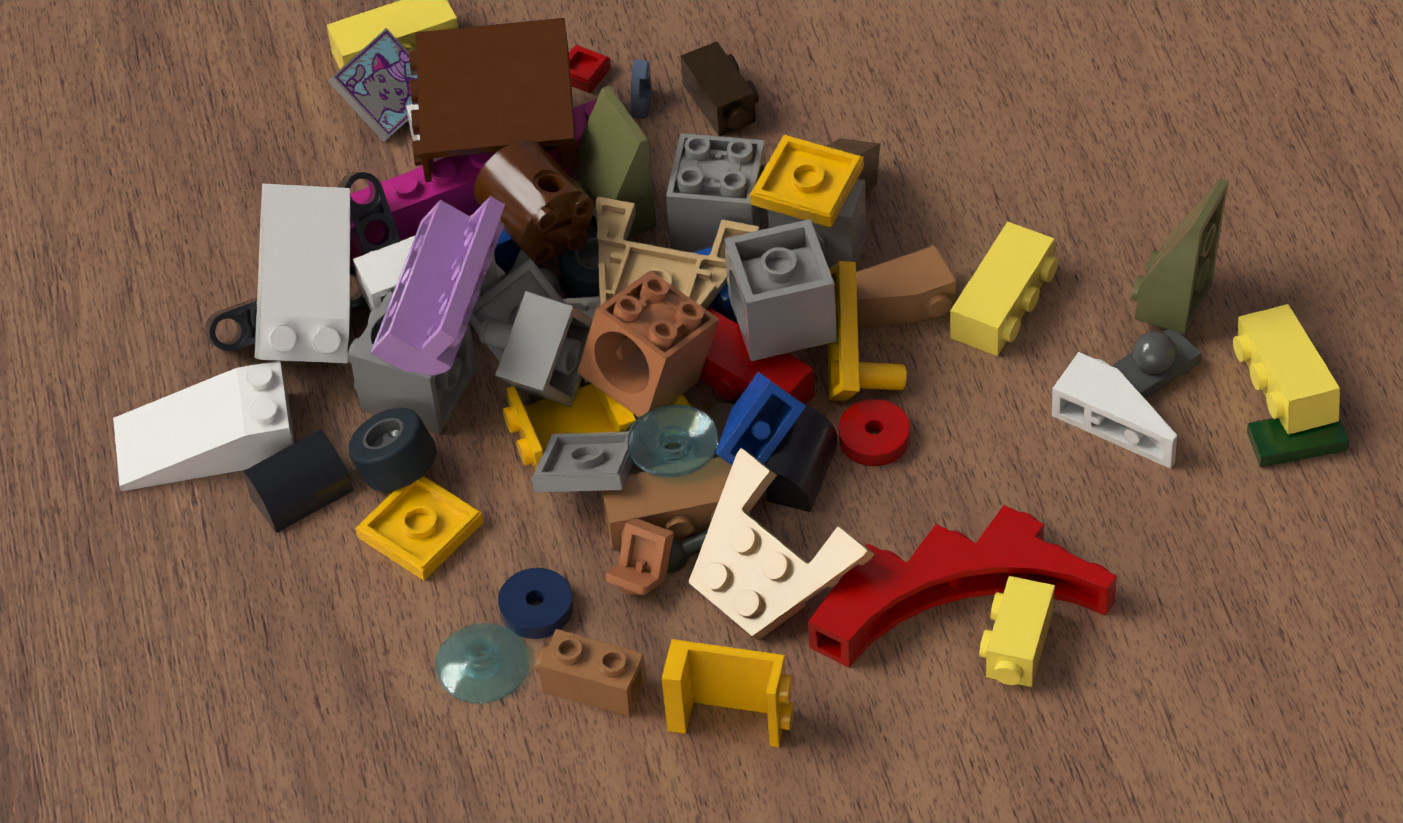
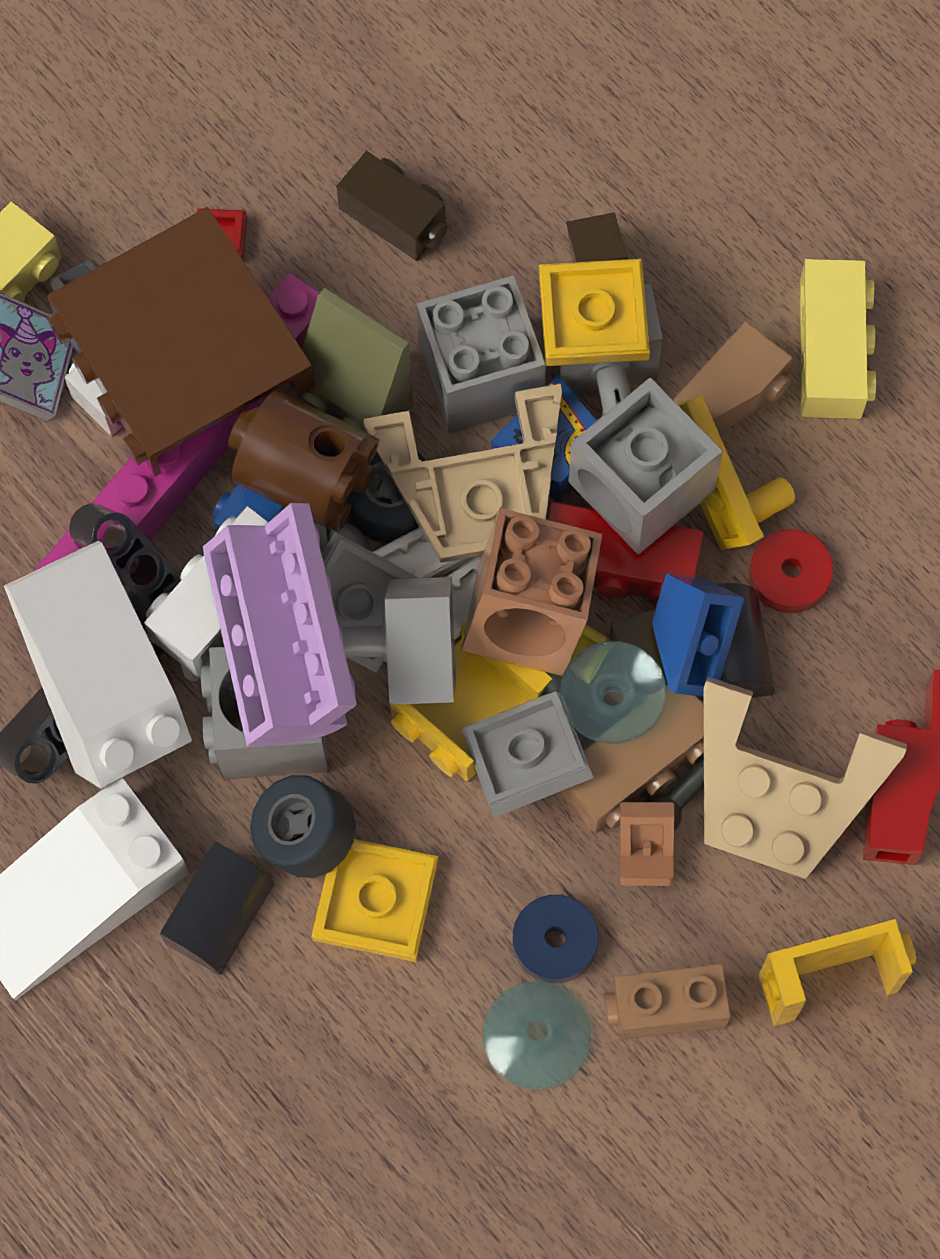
camera: 30 degrees left, 20 degrees up
(640, 88) = (306, 246): sand blue tile -> none

